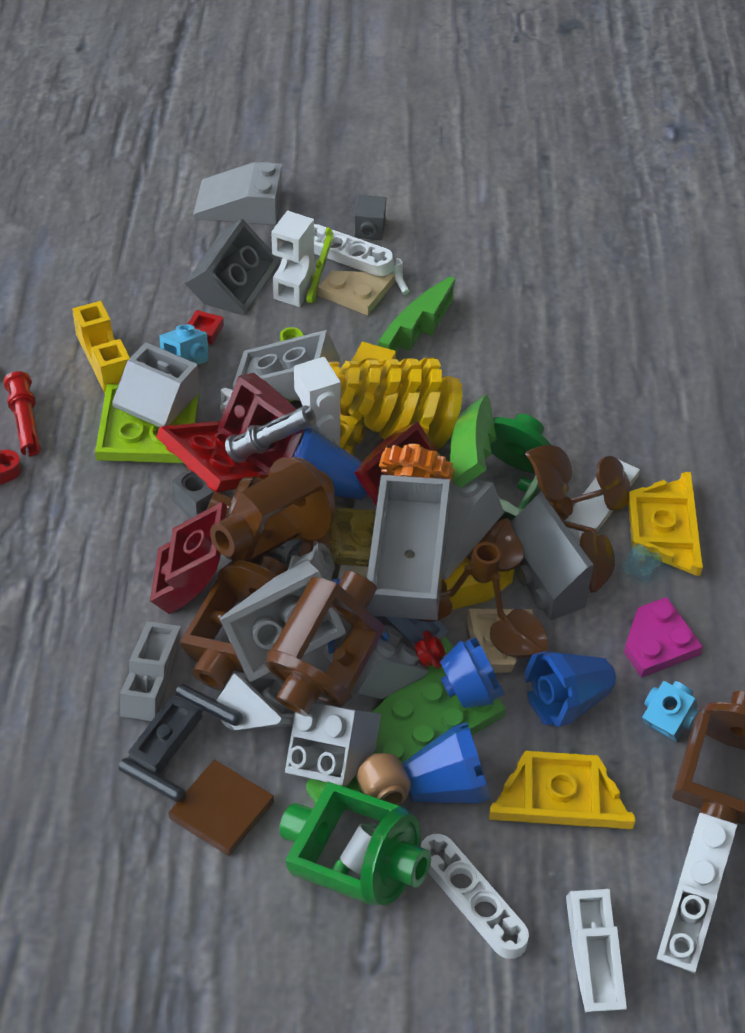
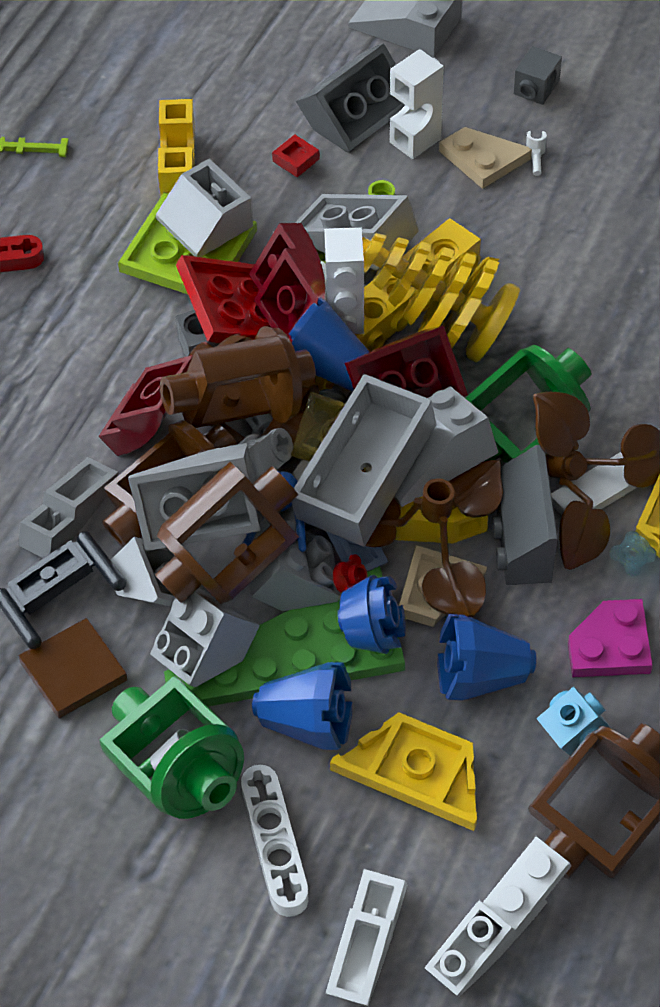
camera: 25 degrees right, 5 degrees up
(22, 402) = (70, 189): red pin -> none
(186, 343) = (260, 173): medium azure brick -> none
(259, 438) = (273, 297): flat silver pin -> none
(312, 291) = (430, 147): lime piece -> none
(374, 261) = (485, 110): white beam -> none
(384, 778) = (233, 694): medium nougat head -> none
(415, 462) = (409, 373): orange gear -> none
(419, 317) = (534, 205): bright green slope -> none
(472, 441) = (490, 364): bright green slope -> none

